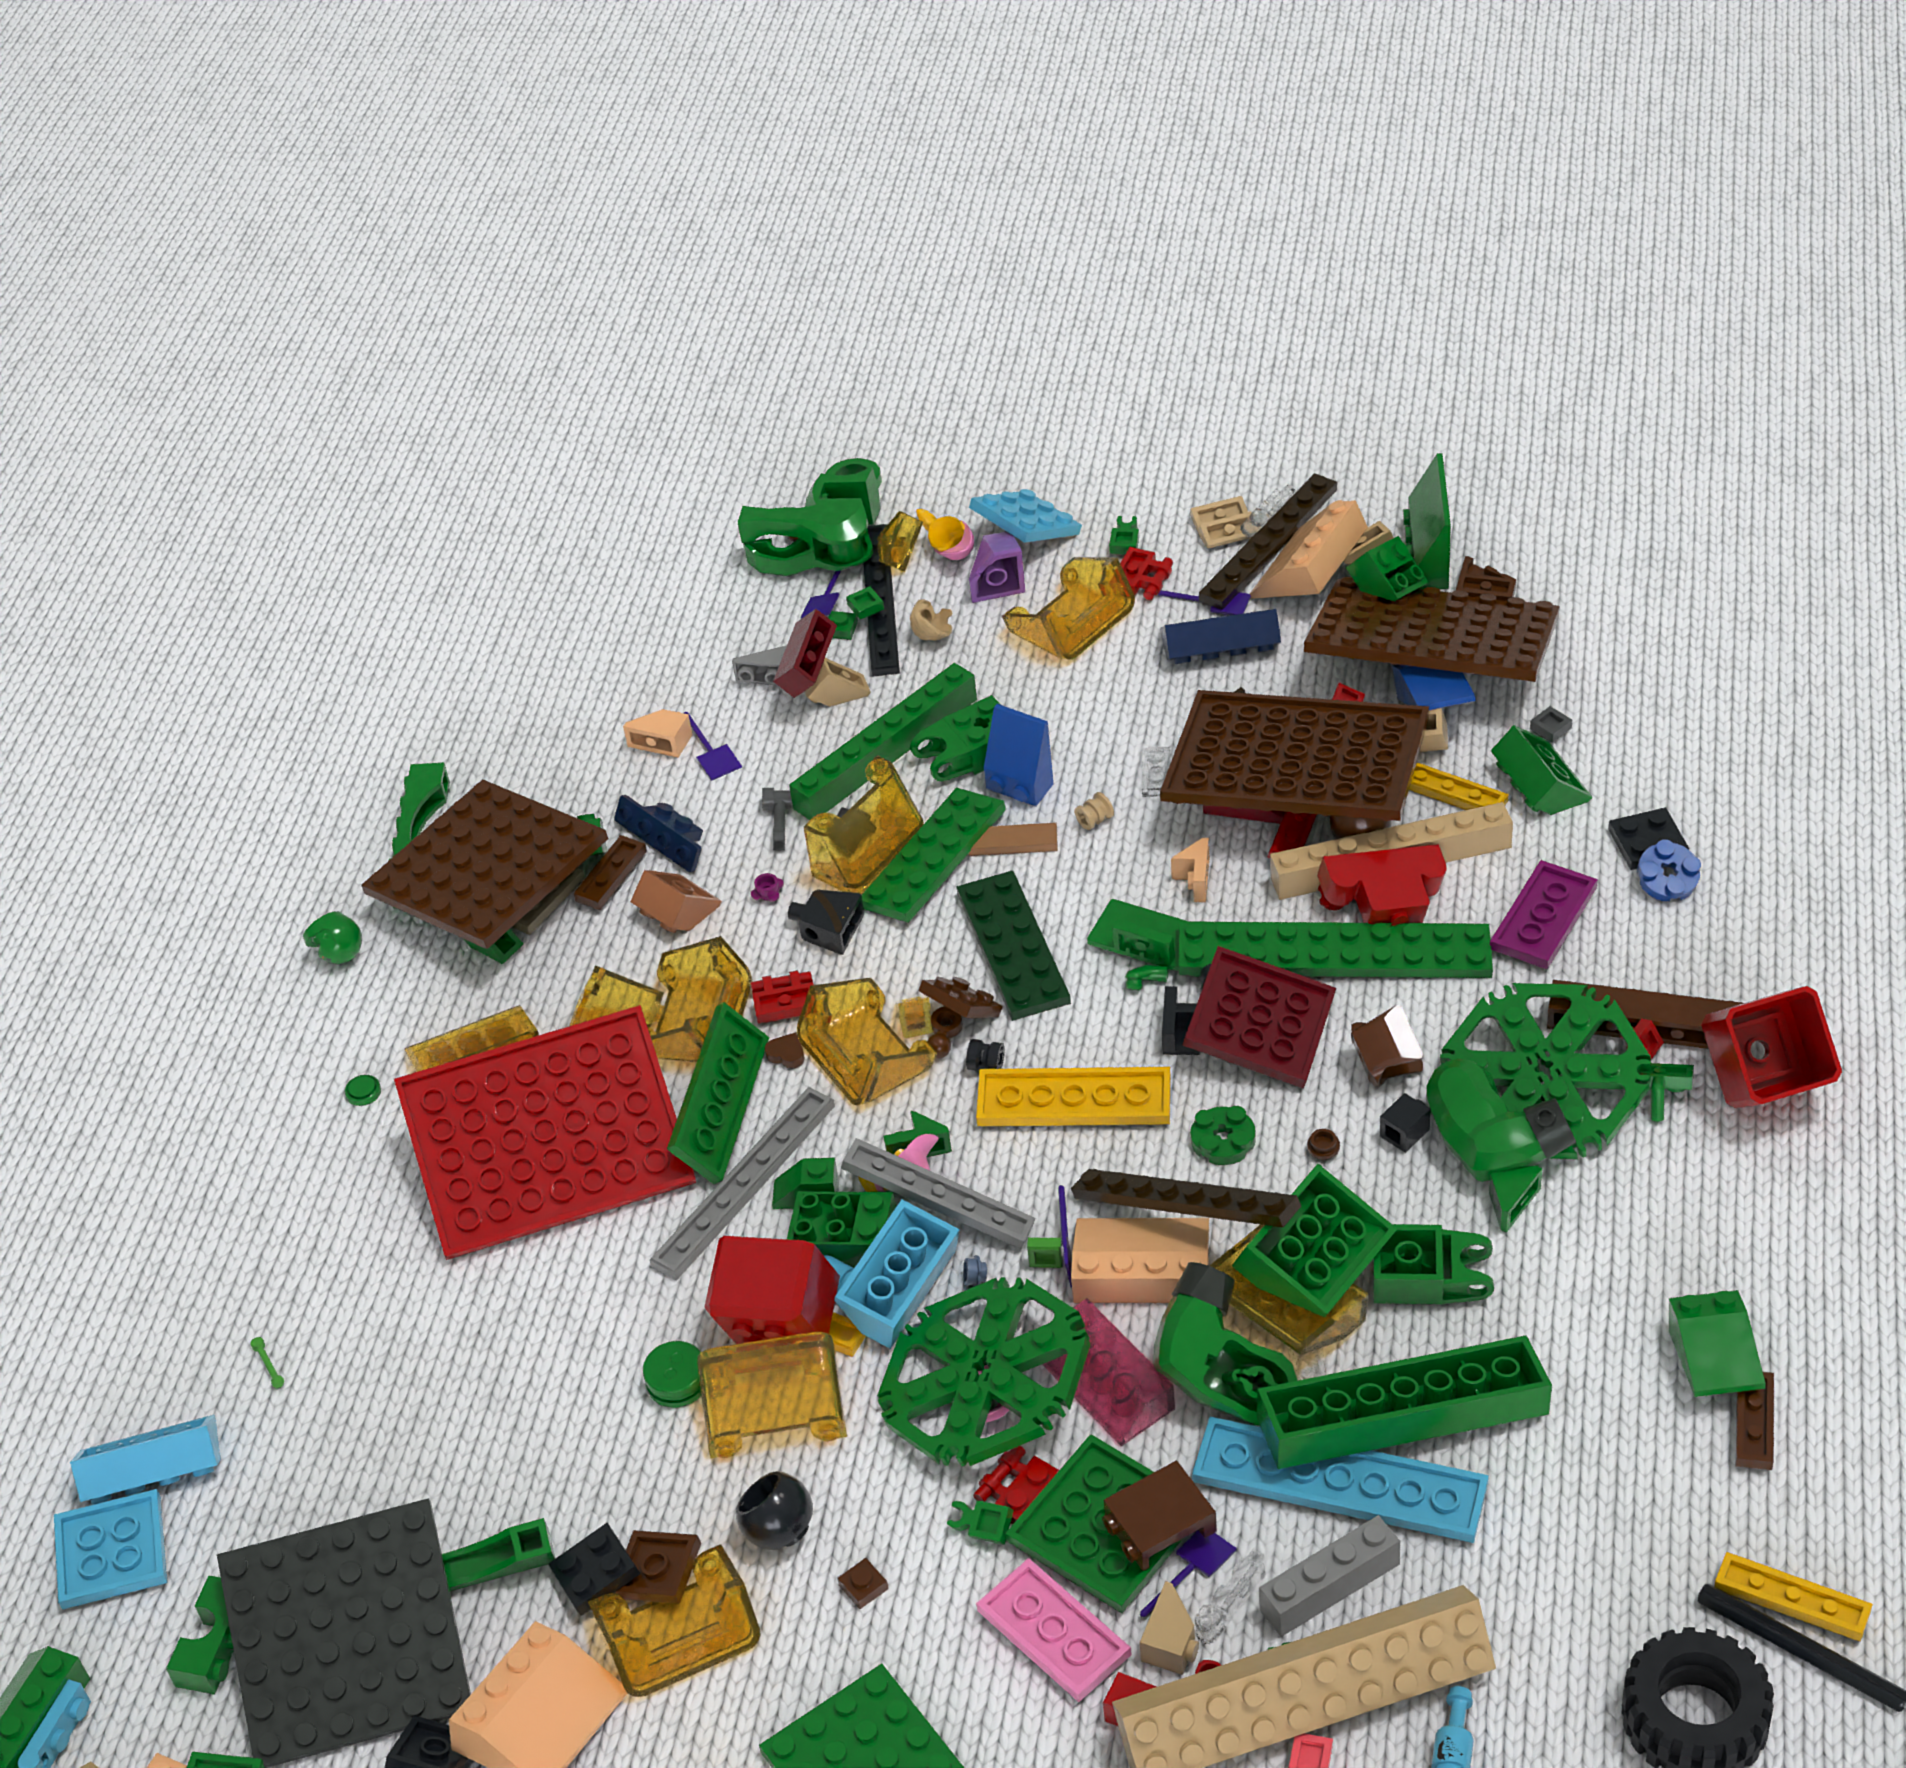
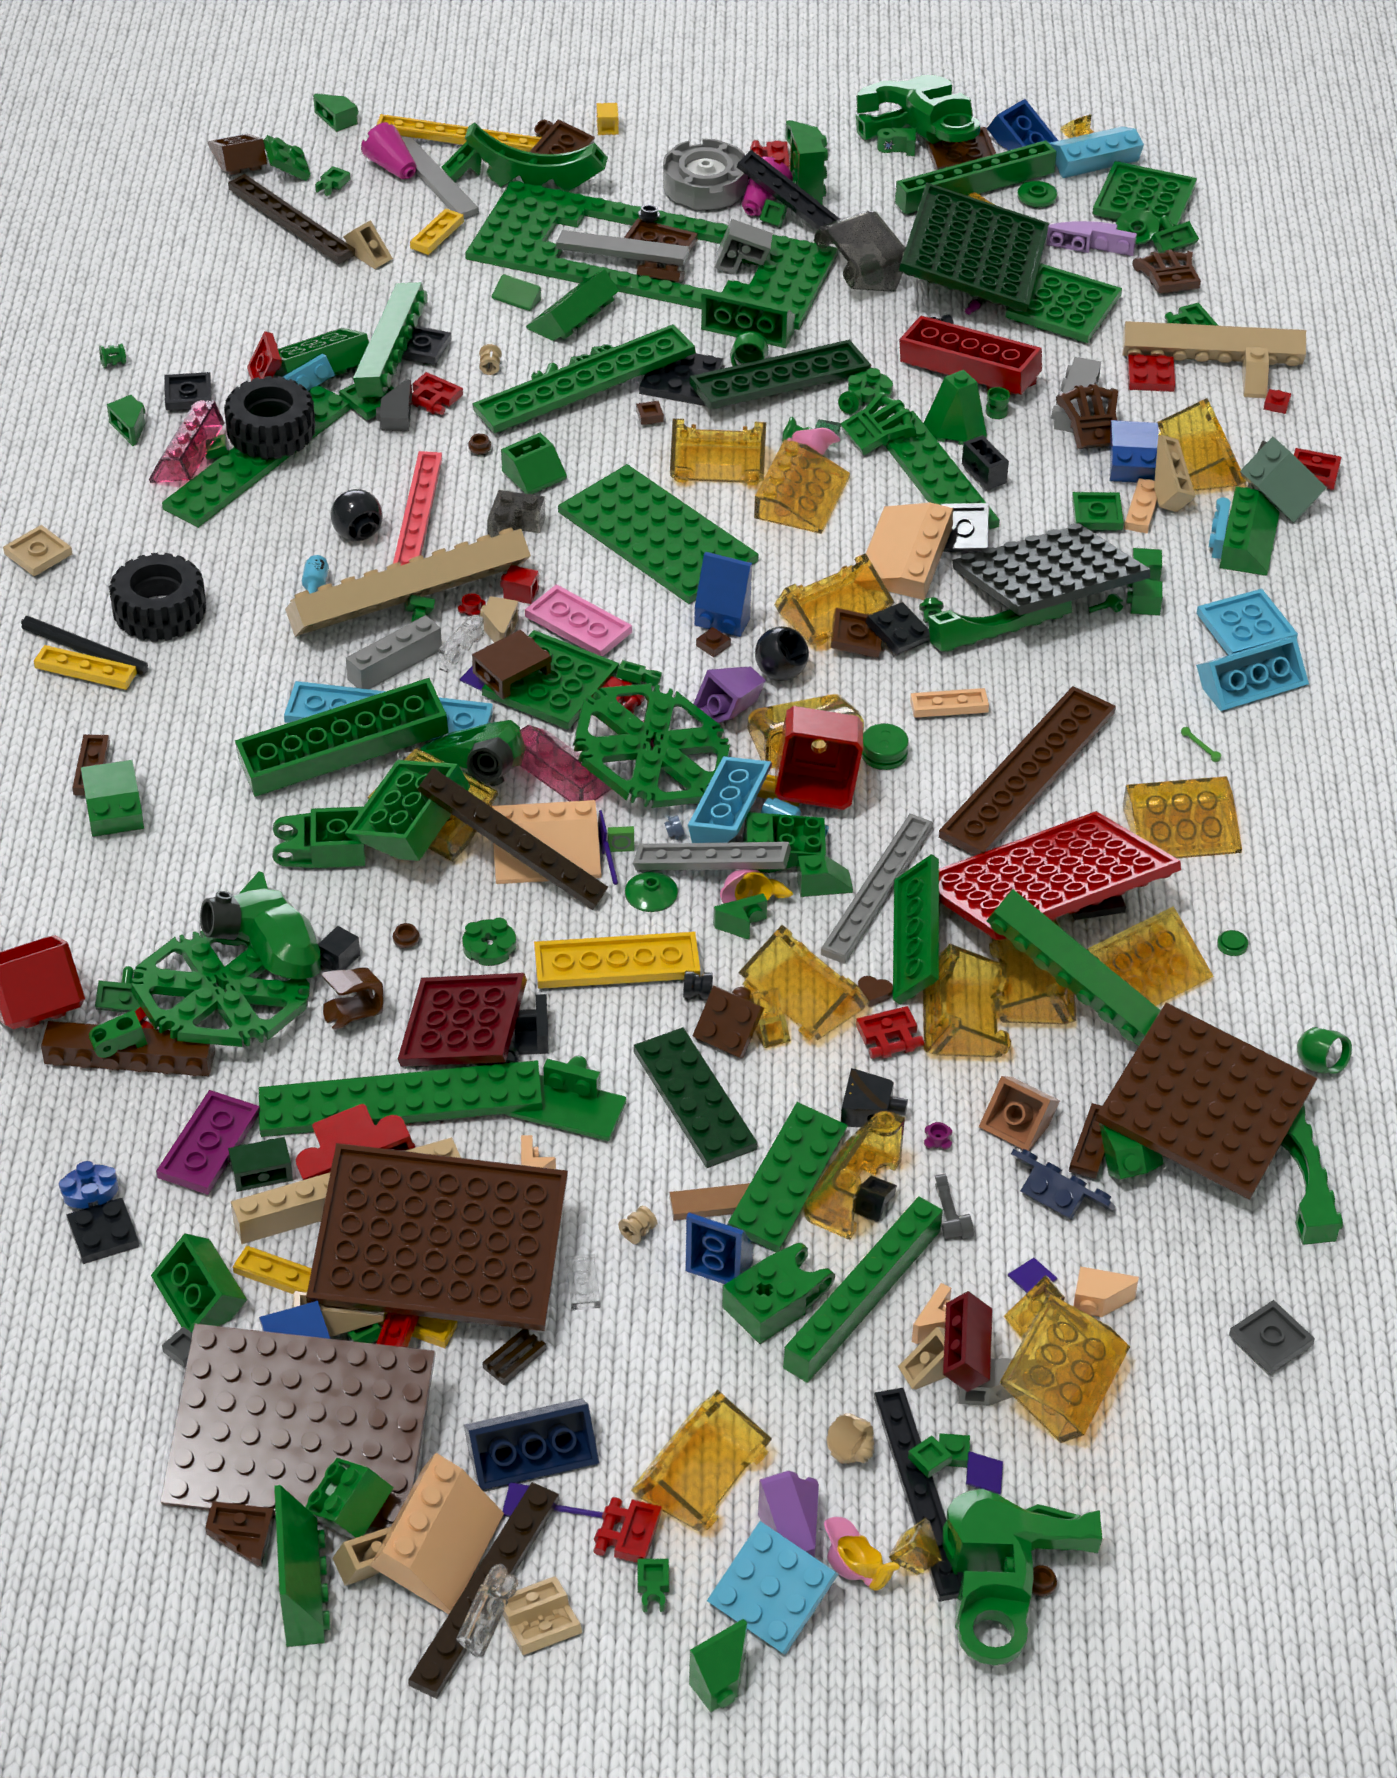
camera: 165 degrees right, 0 degrees up
(345, 1243) = (1185, 816): none -> clear yellow slope
(500, 1328) = (1027, 772): none -> reddish brown plate
(520, 694) = (1271, 1336): none -> dark grey plate
(535, 1609) = (930, 605): none -> green plate
(560, 980) = (1074, 967): none -> green brick
(567, 1440) = (949, 702): none -> light nougat plate
(718, 647) = (1064, 1368): none -> clear yellow slope
(726, 712) = (1025, 1311): none -> clear yellow slope
(825, 717) = (932, 1314): none -> light nougat slope
(833, 1617) = (724, 594): none -> blue slope
(858, 1456) = (728, 692): none -> medium lavender slope
(1022, 1191) = (651, 891): none -> green dish
(1079, 471) = (718, 1666): none -> green slope
(1485, 884) = (260, 1164): none -> dark green brick
(1655, 989) = (117, 1035): none -> green leg

